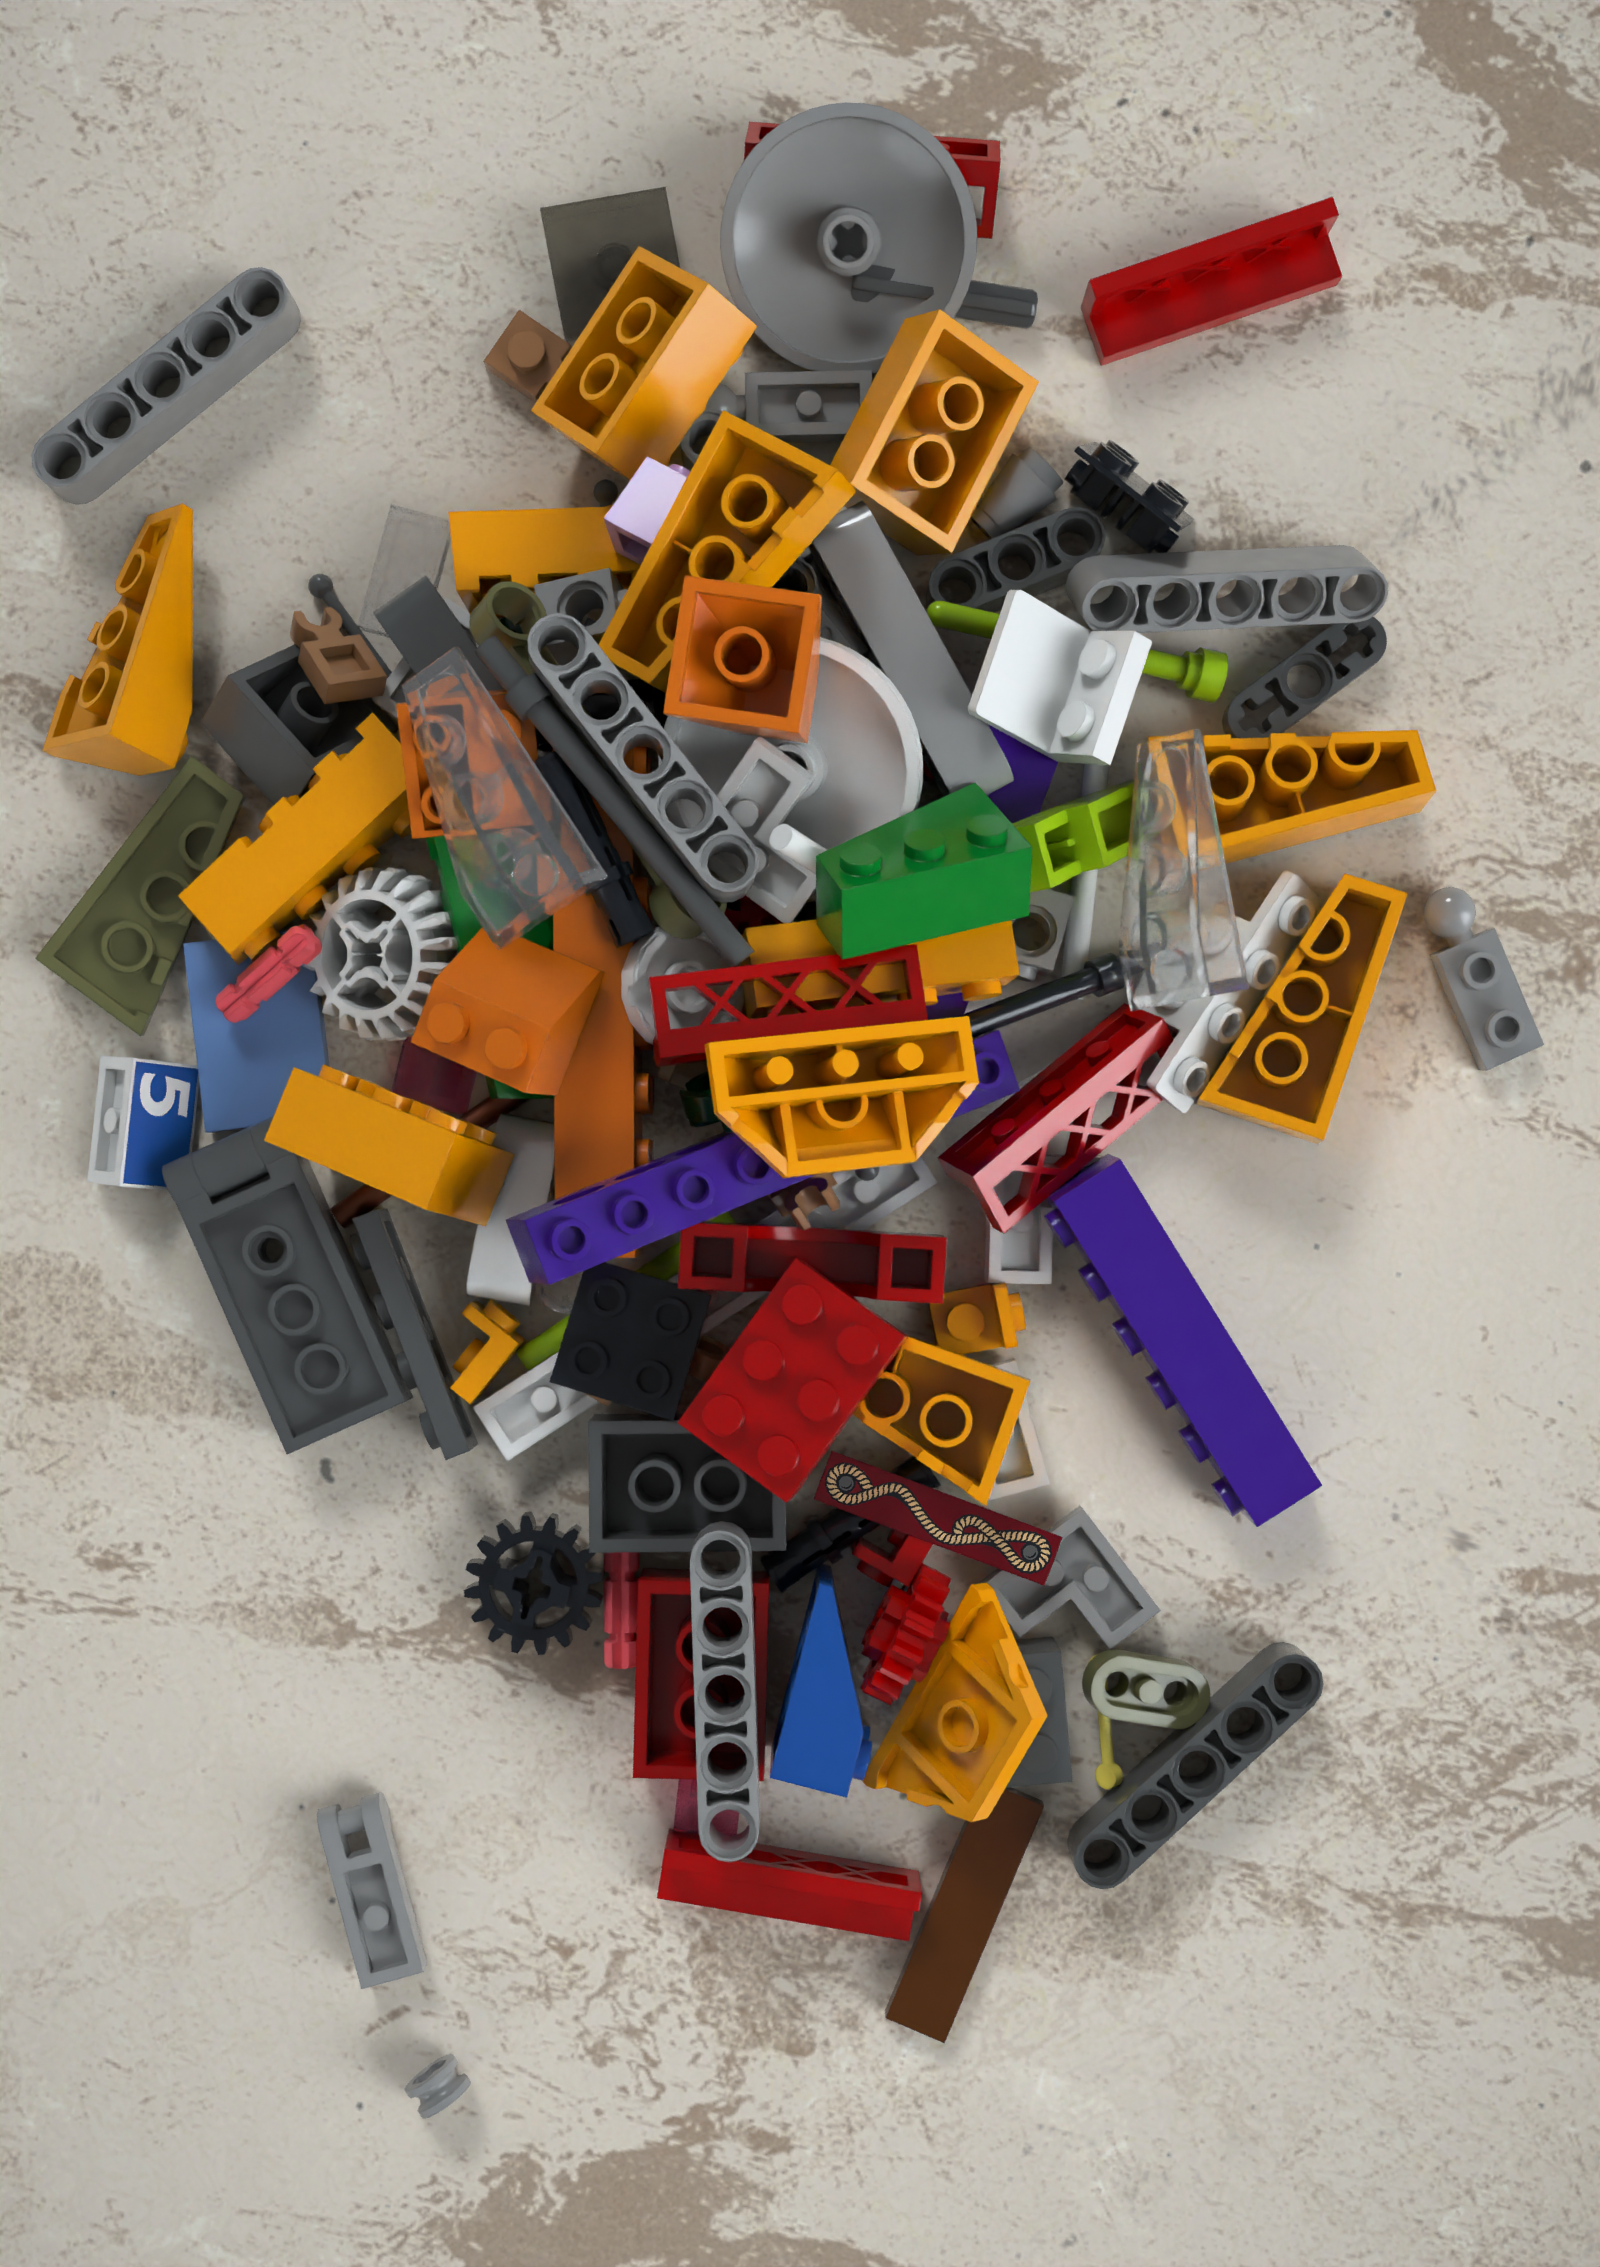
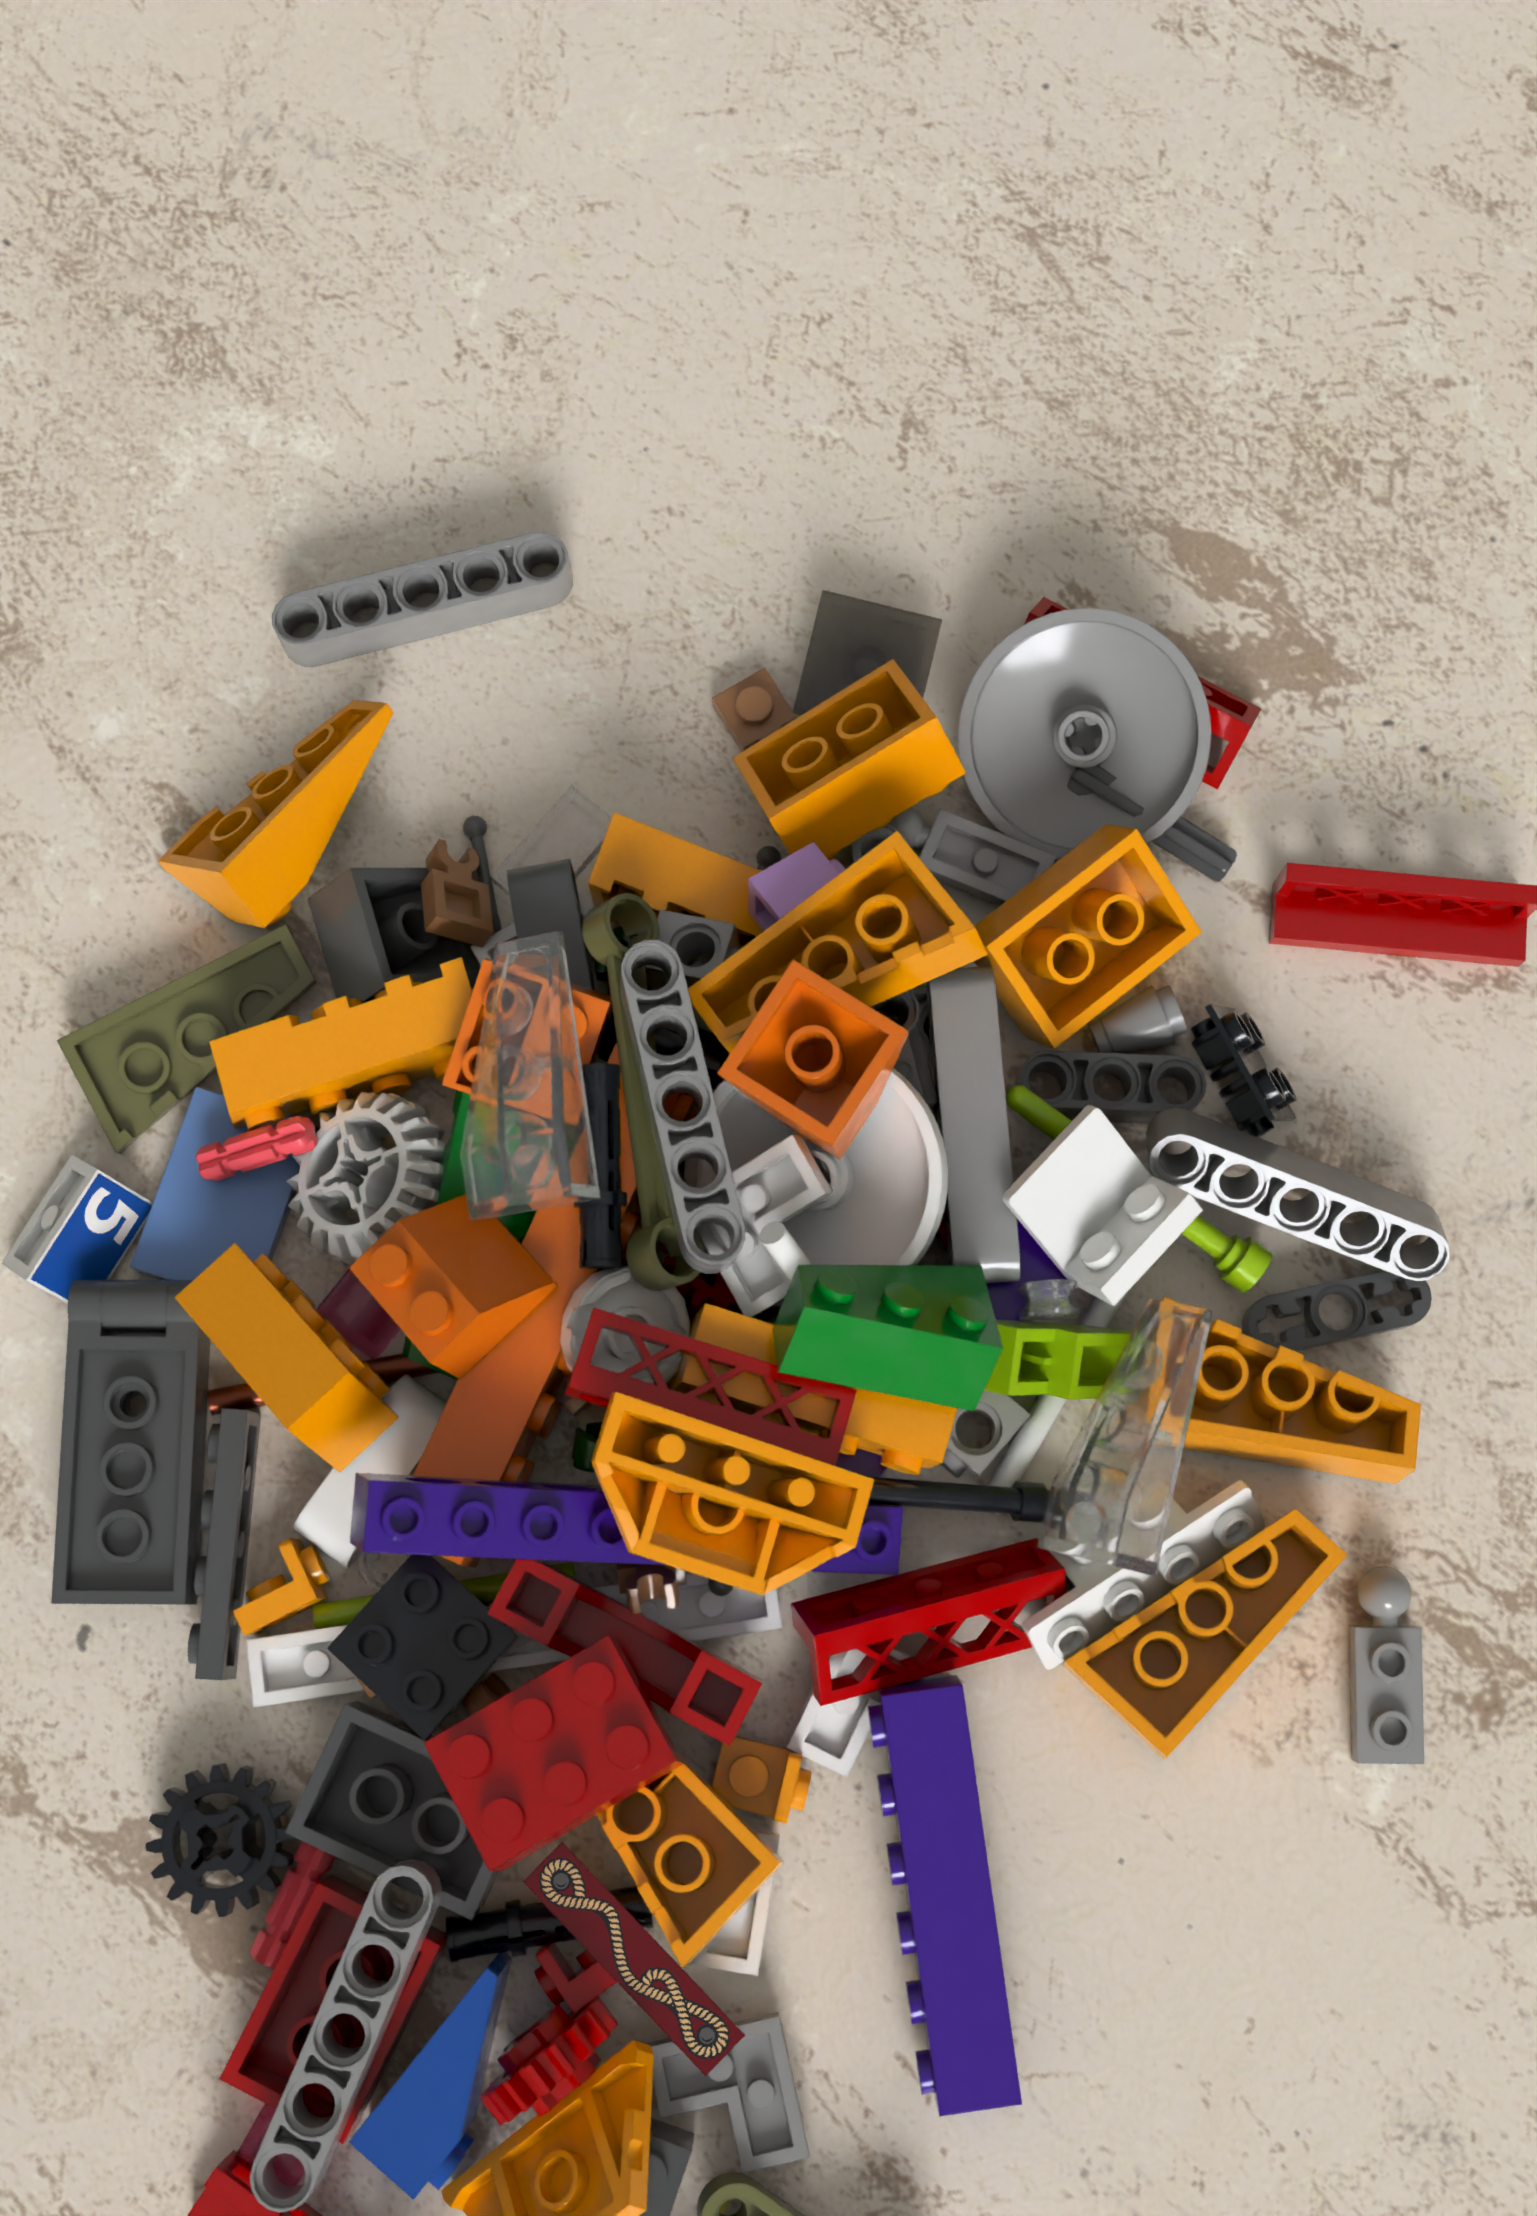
camera: 25 degrees right, 10 degrees down
(531, 701) = (605, 1008): dark grey bar -> none
(1047, 786) = (1048, 1299): none -> clear bush

